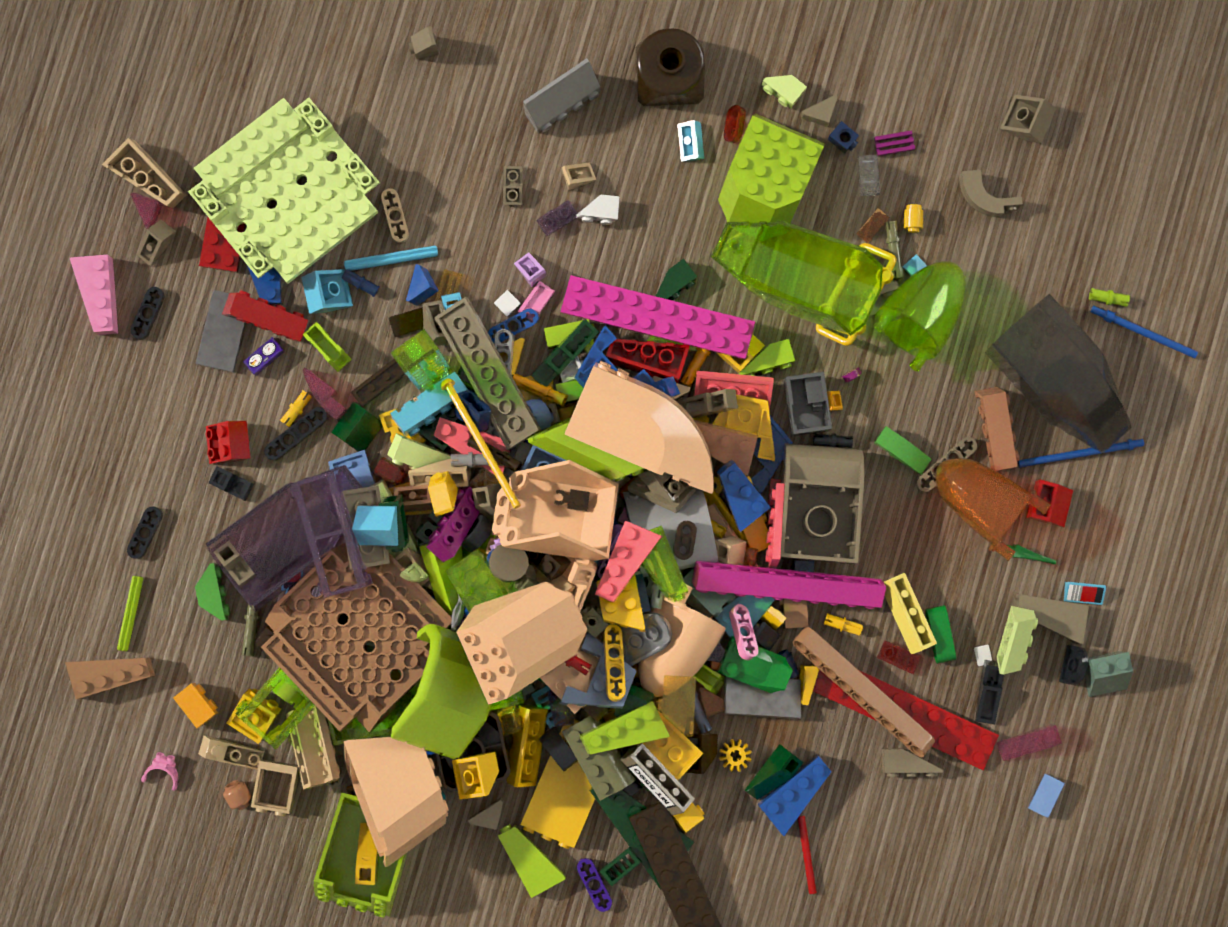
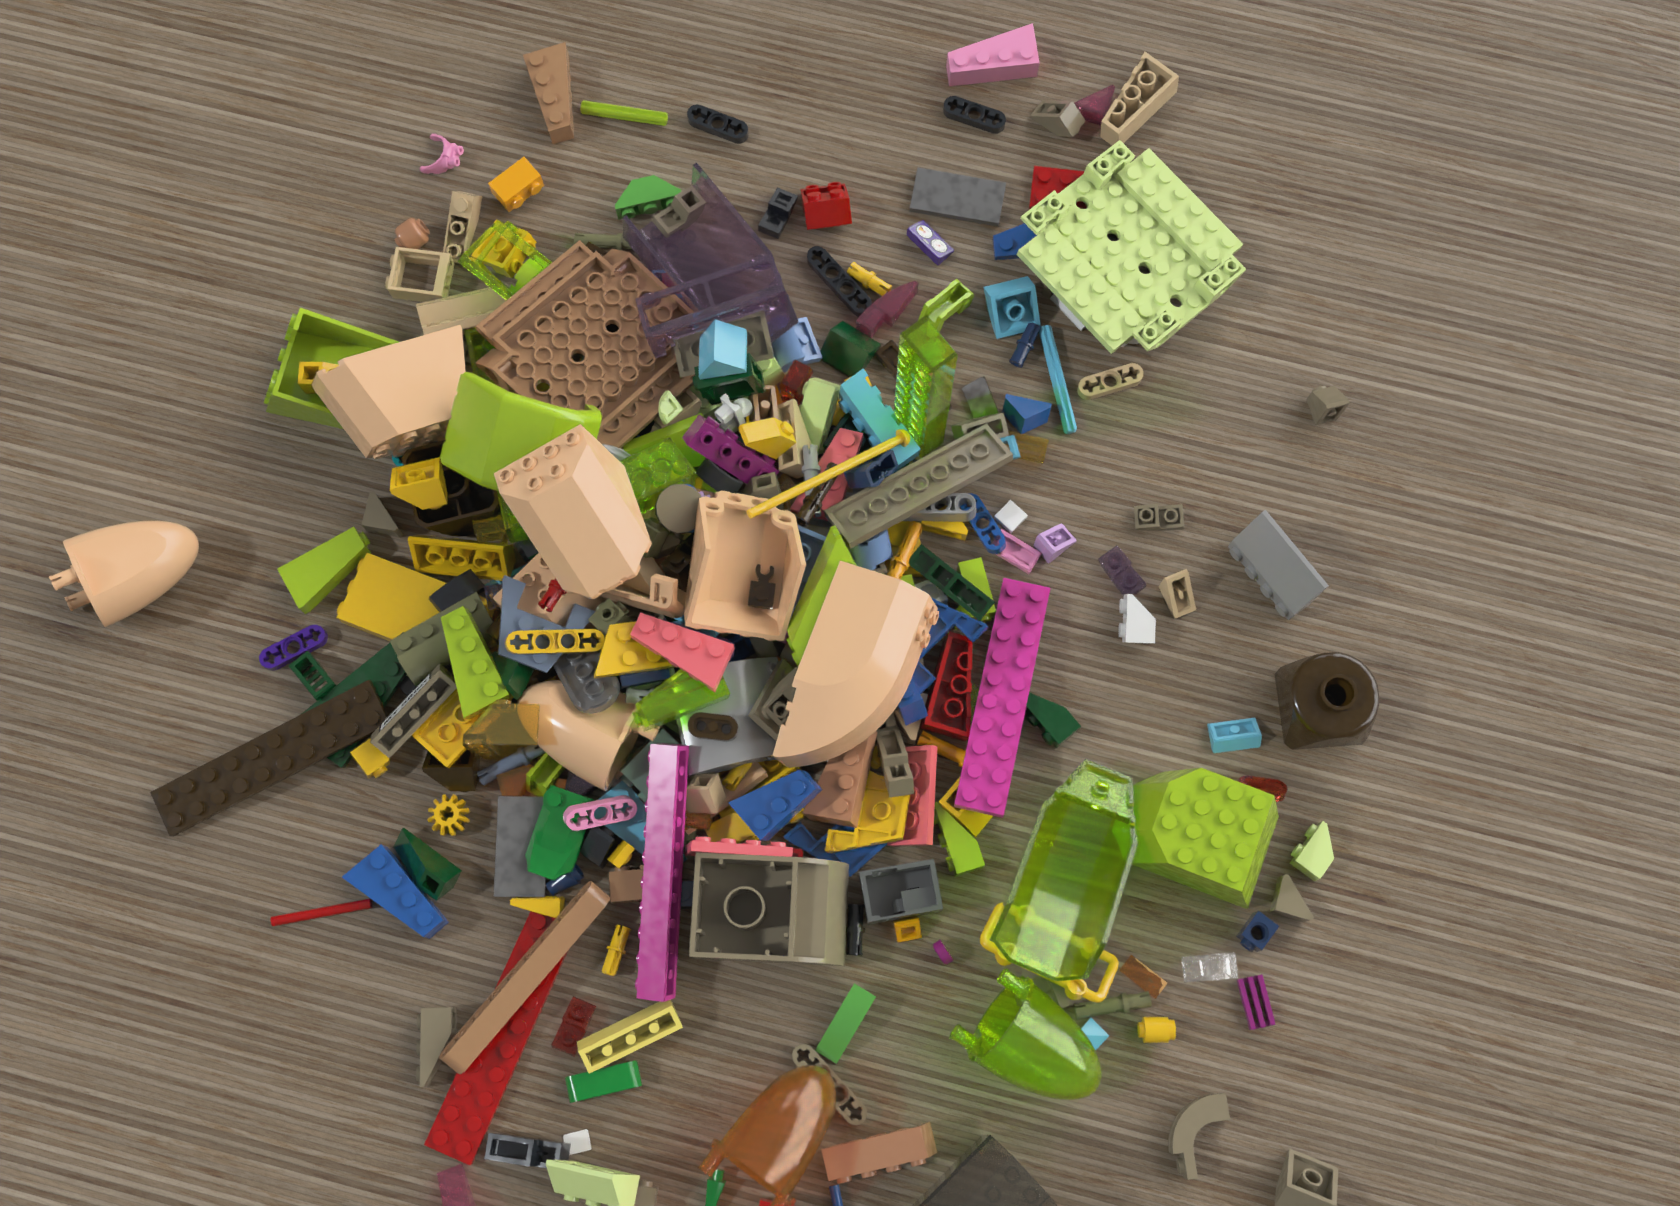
camera: 90 degrees right, 10 degrees down
(265, 316) = (976, 236): red wedge -> none
(420, 521) = (732, 414): none -> white hips

